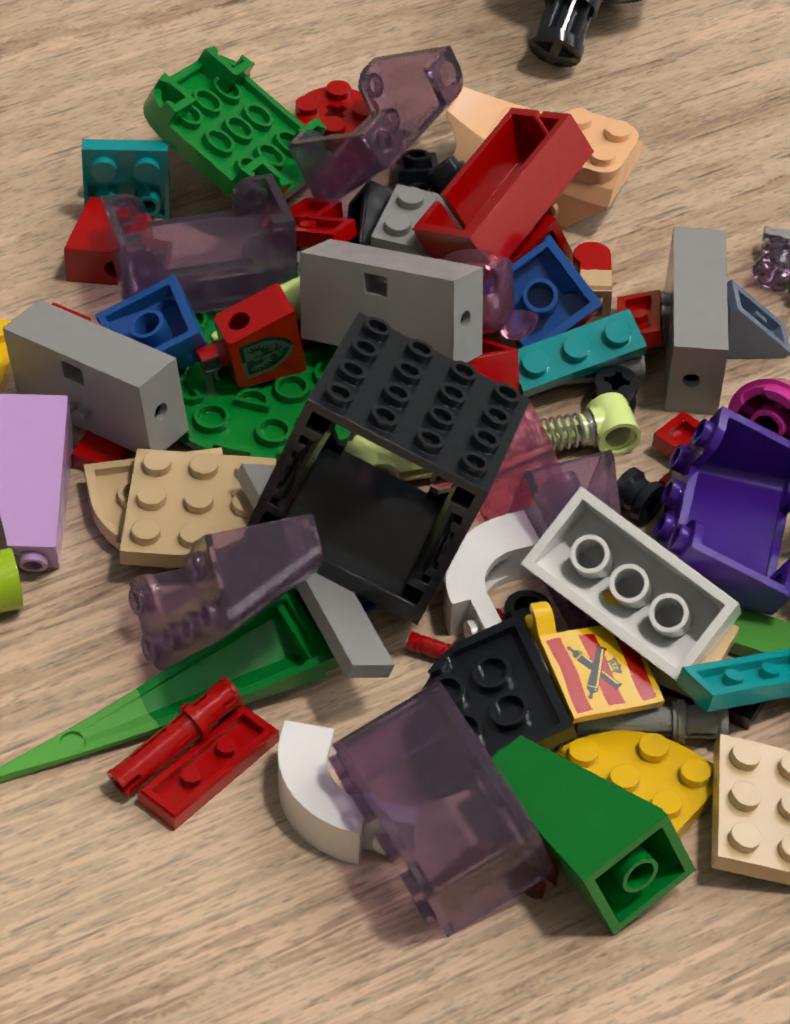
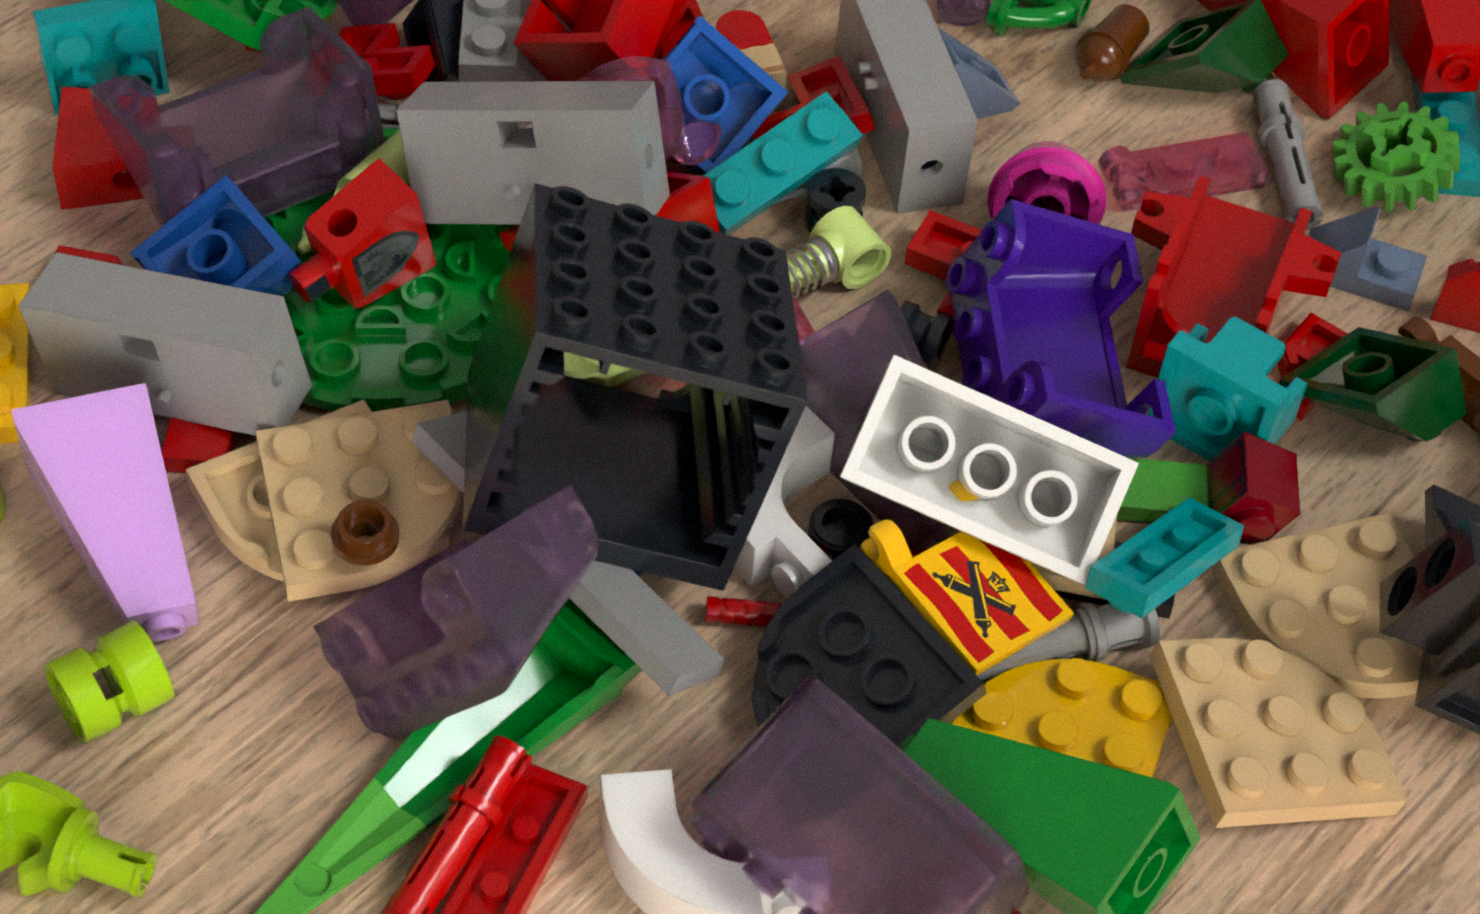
camera: 20 degrees left, 5 degrees up
(180, 526) = (362, 519): none -> reddish brown plate

